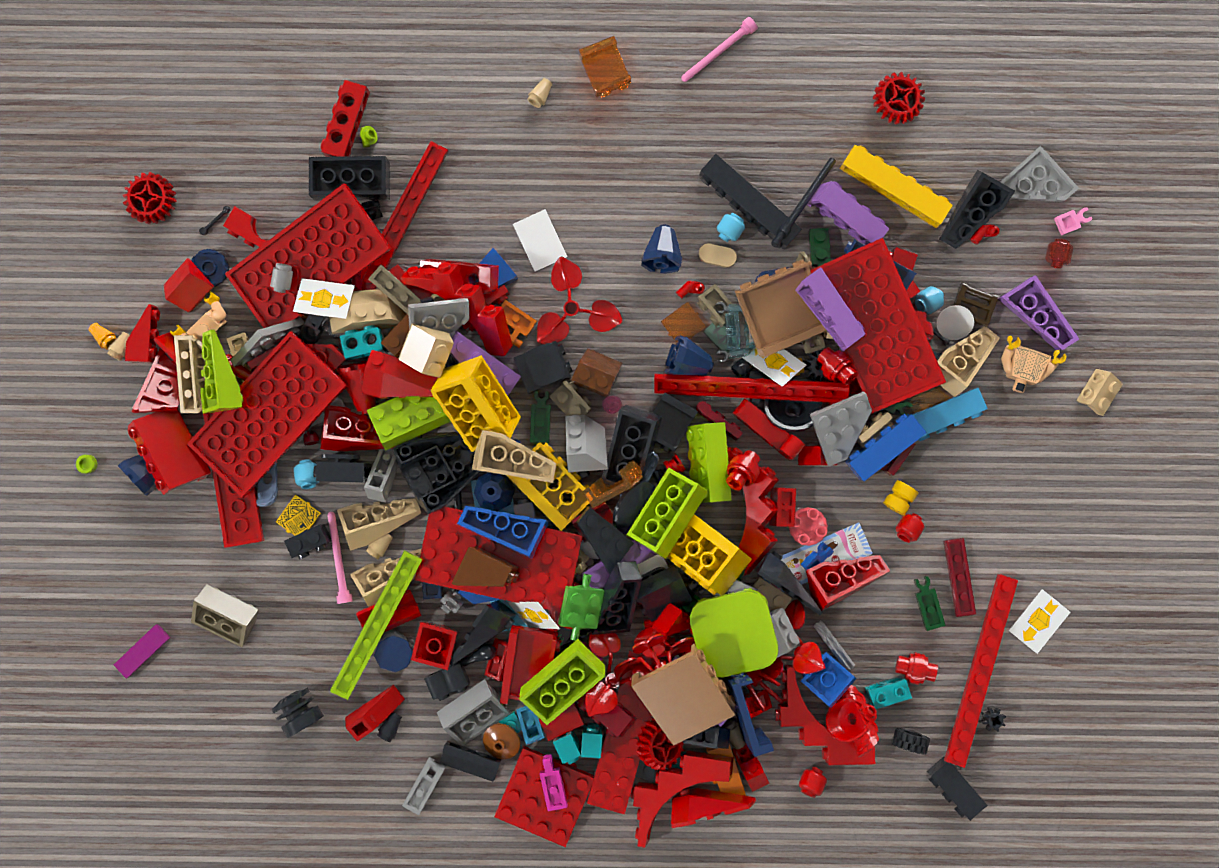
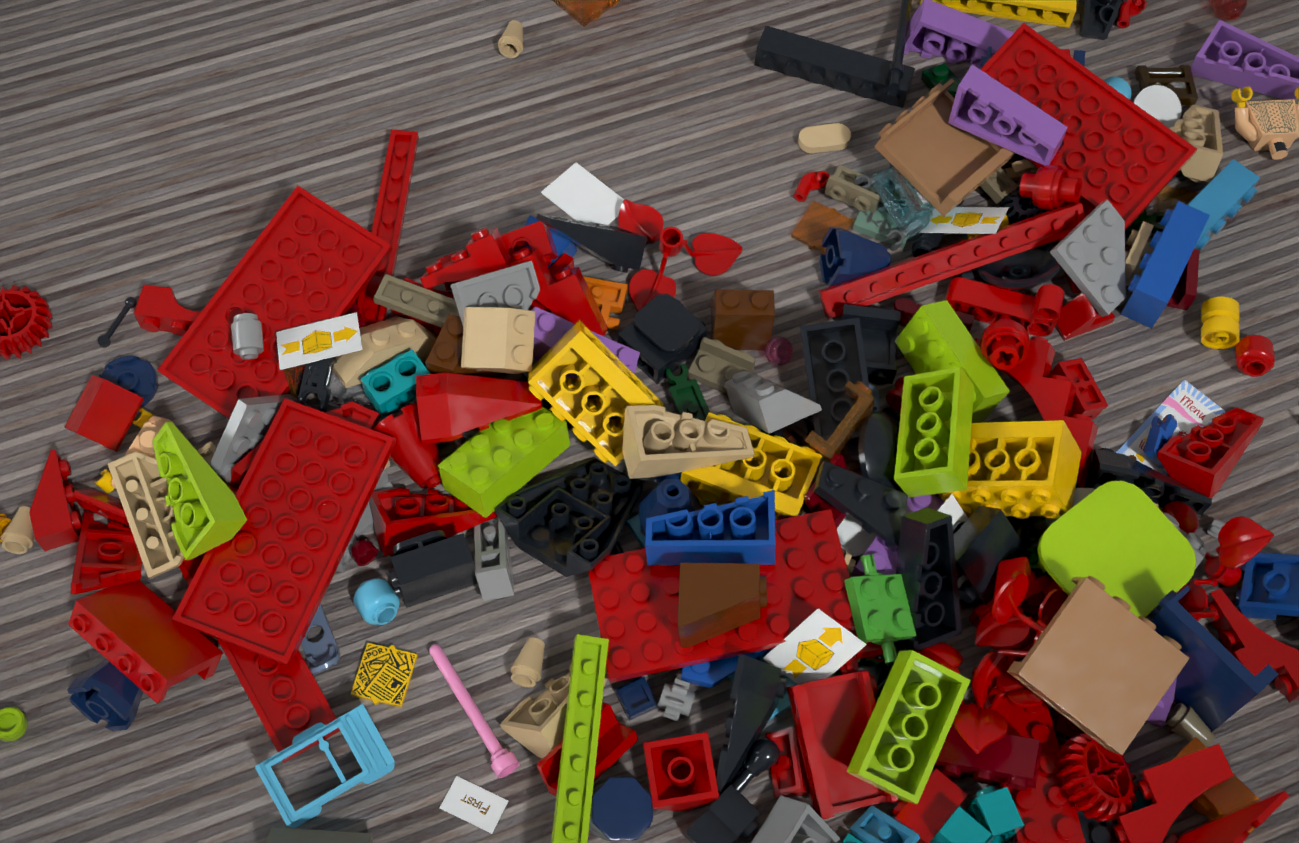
camera: 30 degrees left, 25 degrees down
(266, 555) = (364, 743): none -> medium azure piece
(311, 539) = (415, 697): black brick -> none
(321, 611) = (474, 804): none -> white sticker
(354, 113) = (264, 146): red brick -> none
(364, 175) = (324, 179): black brick -> none
(368, 136) = (302, 154): lime plate -> none
(369, 523) = (497, 641): tan wedge -> none
(531, 286) = (607, 242): none -> black wedge
(662, 251) = (756, 152): dark blue cone -> none
(712, 737) = (1160, 736): black brick -> none
(730, 227) = (825, 98): medium azure head -> none
(751, 768) = (1251, 763): red slope -> none
(809, 526) = (1128, 405): coral dish -> none

